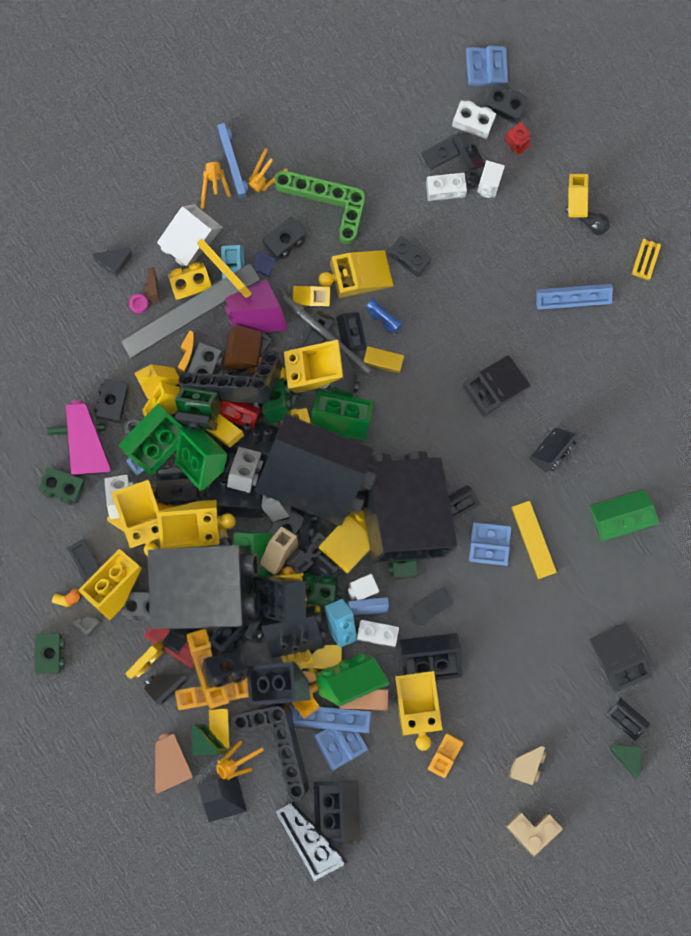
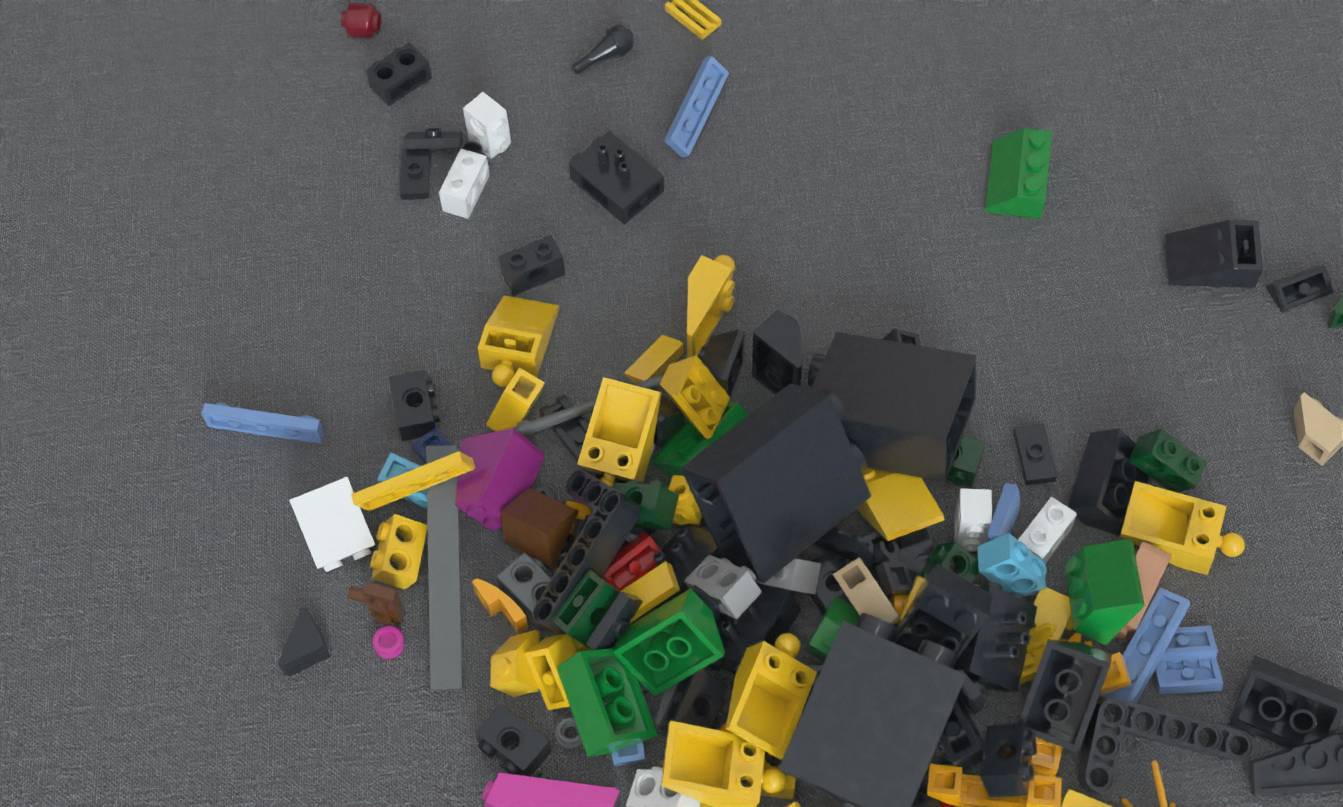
camera: 55 degrees left, 20 degrees down
(213, 172) = (265, 454): light orange plant -> none
(257, 181) = (312, 402): light orange plant -> none
(326, 197) = (390, 326): bright green beam -> none
(351, 331) = (585, 382): black slope -> none
(358, 396) = (696, 394): none -> yellow slope
(389, 322) = (597, 328): blue plate -> none
(396, 400) = (724, 358): none -> black slope
(413, 431) = (777, 352): none -> black slope
(435, 369) = (708, 298): none -> yellow slope
(445, 755) = (1263, 533): light orange slope -> none
(457, 685) = (1167, 461): none -> dark green brick
(472, 123) = (395, 116): white brick -> none
(487, 66) = (334, 76): medium blue slope -> none
(490, 543) = (982, 338): medium blue slope -> none
(495, 385) = (767, 245): black slope -> none
(497, 273) = (616, 177): none -> black piece
(518, 138) = (452, 78): red window -> none
(533, 540) = (1000, 291): yellow tile -> none
(534, 59) = (361, 20): none -> dark red head
(553, 449) = (892, 204): black slope -> none
(578, 195) = (568, 41): yellow slope -> none

